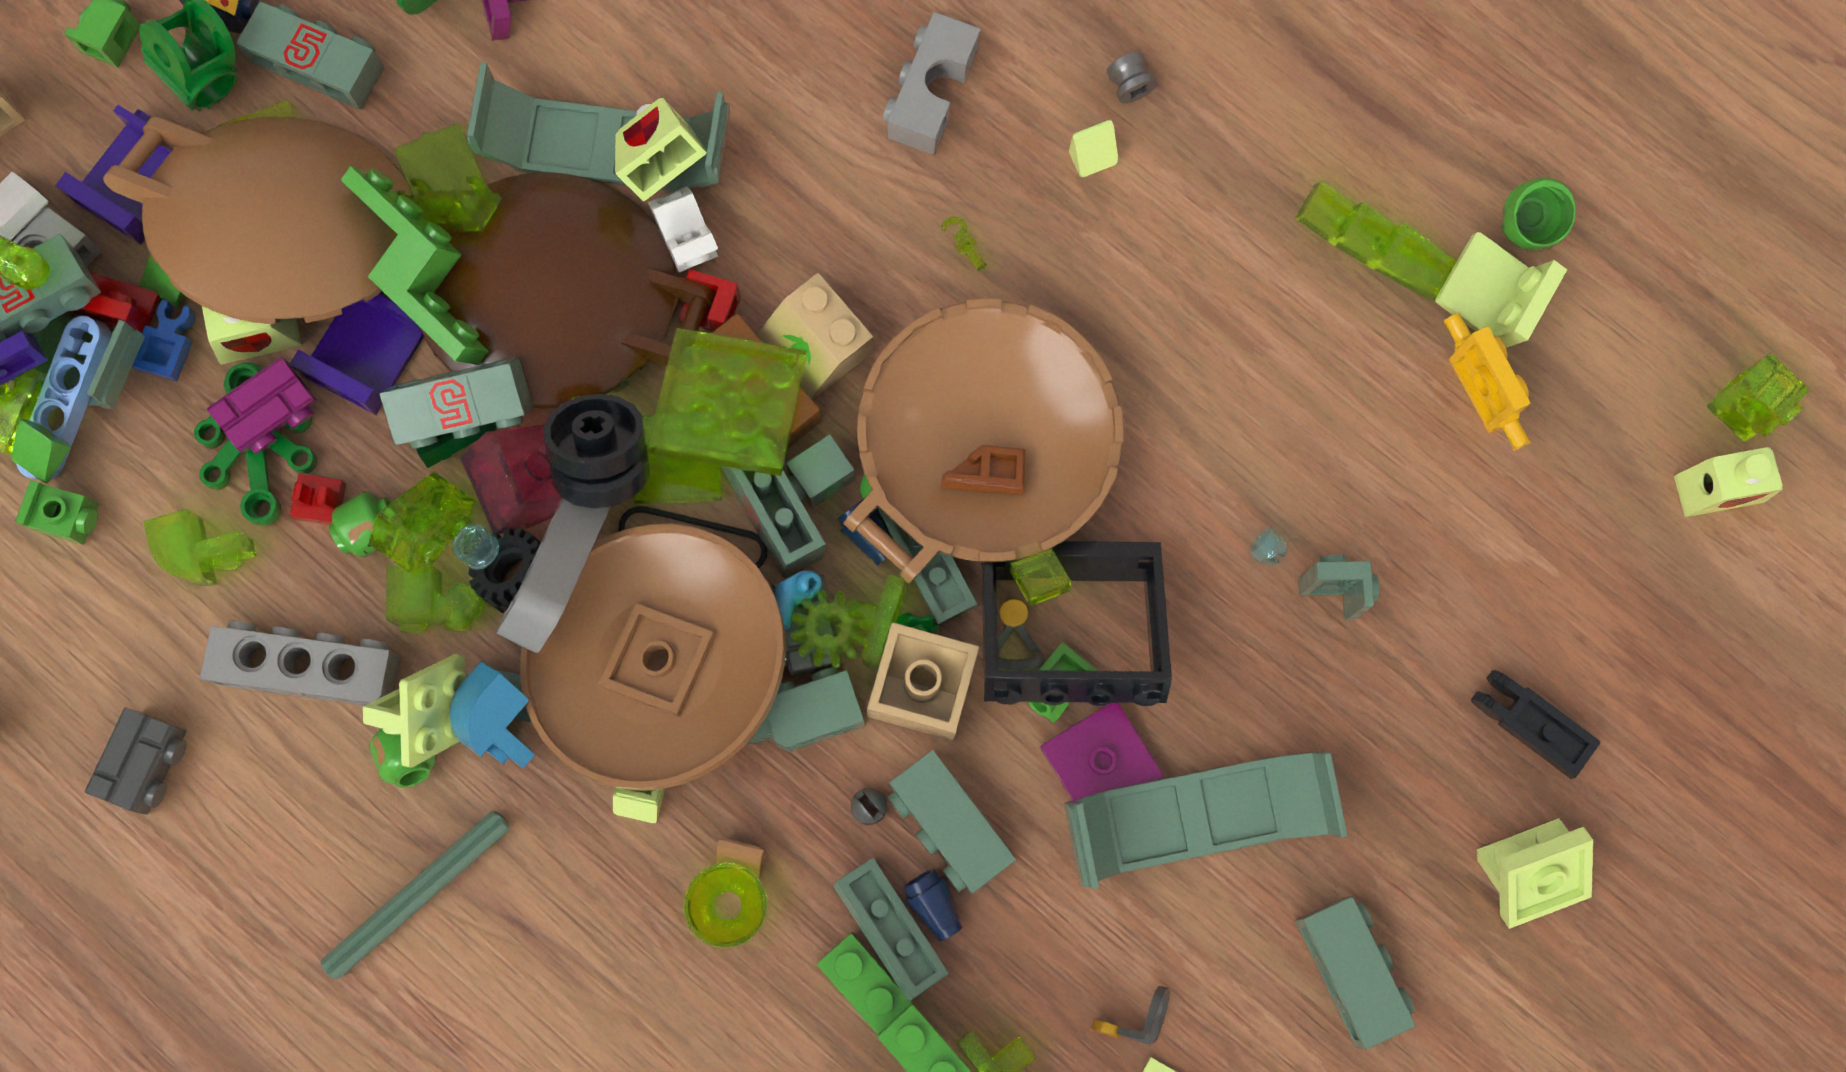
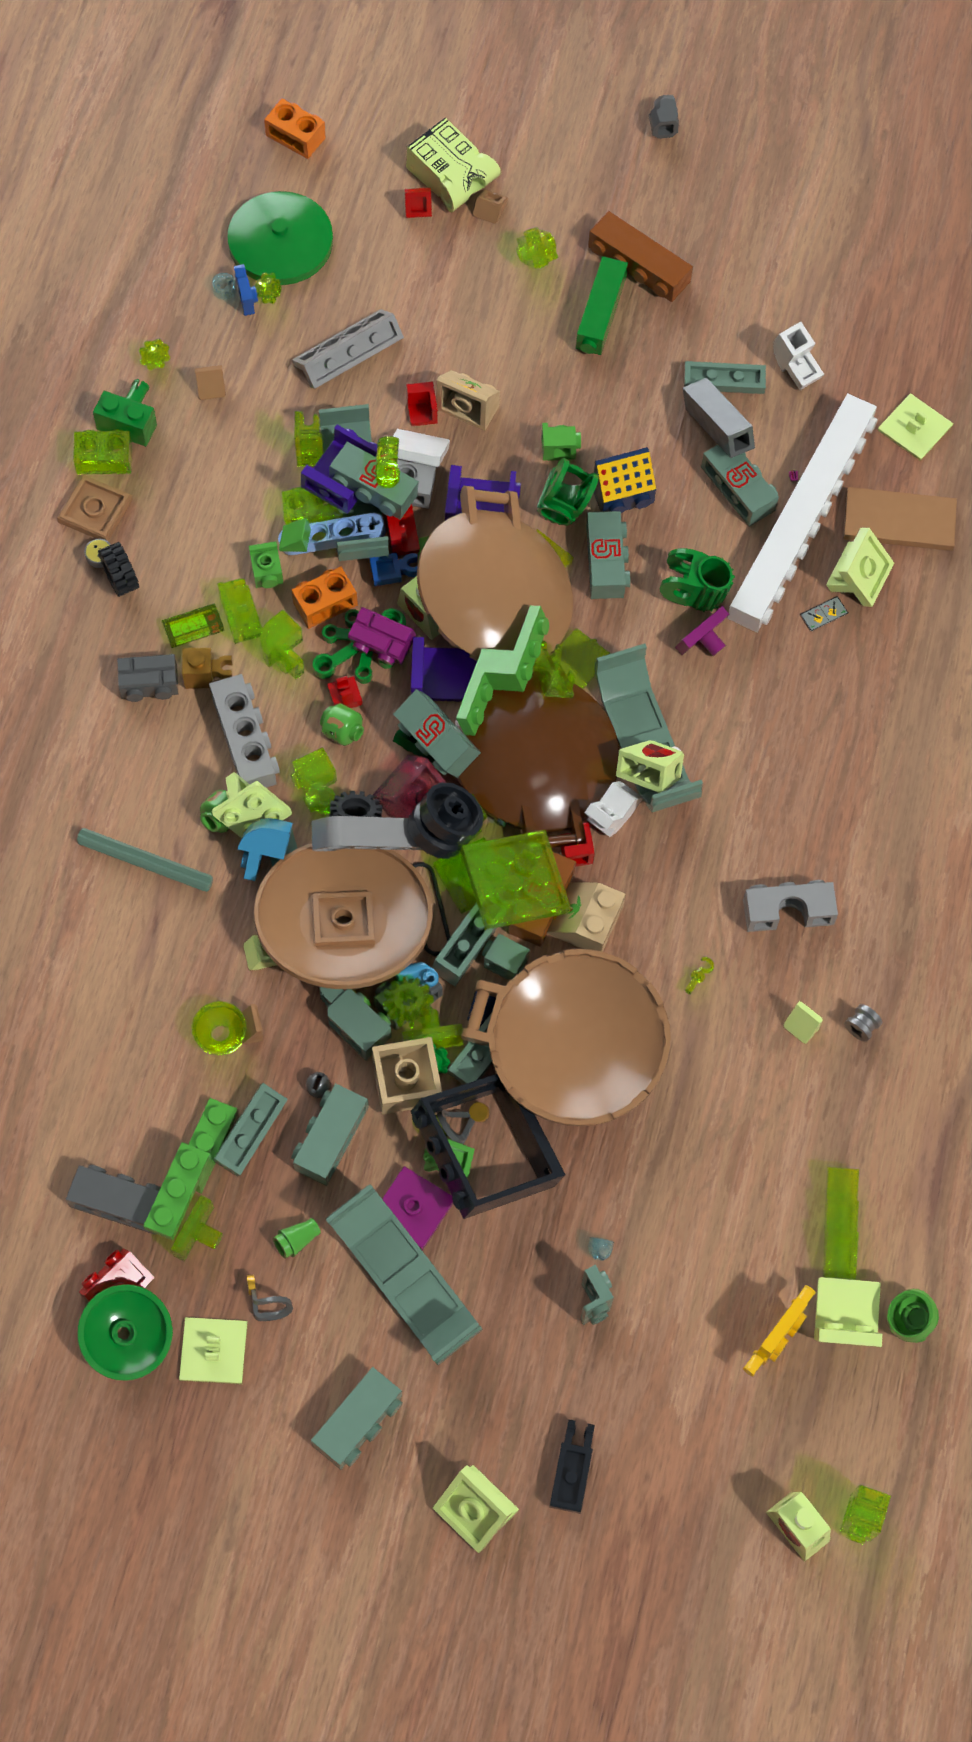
camera: 65 degrees right, 10 degrees down
(91, 660) = (193, 625): none -> clear neon green tile
(106, 583) = (239, 610): none -> clear neon green hinge
(166, 679) = (201, 668): none -> pearl gold brick
(167, 453) = (327, 603): none -> orange brick
(422, 522) = (358, 753): clear neon green brick -> none
(468, 539) = (358, 788): clear light blue bush -> none
(933, 904) = (277, 1148): dark blue cone -> none
(989, 470) = (556, 1052): dark orange tile -> none
(1040, 577) = (503, 1109): clear neon green tile -> none
(1071, 938) = (295, 1238): none -> bright green cone

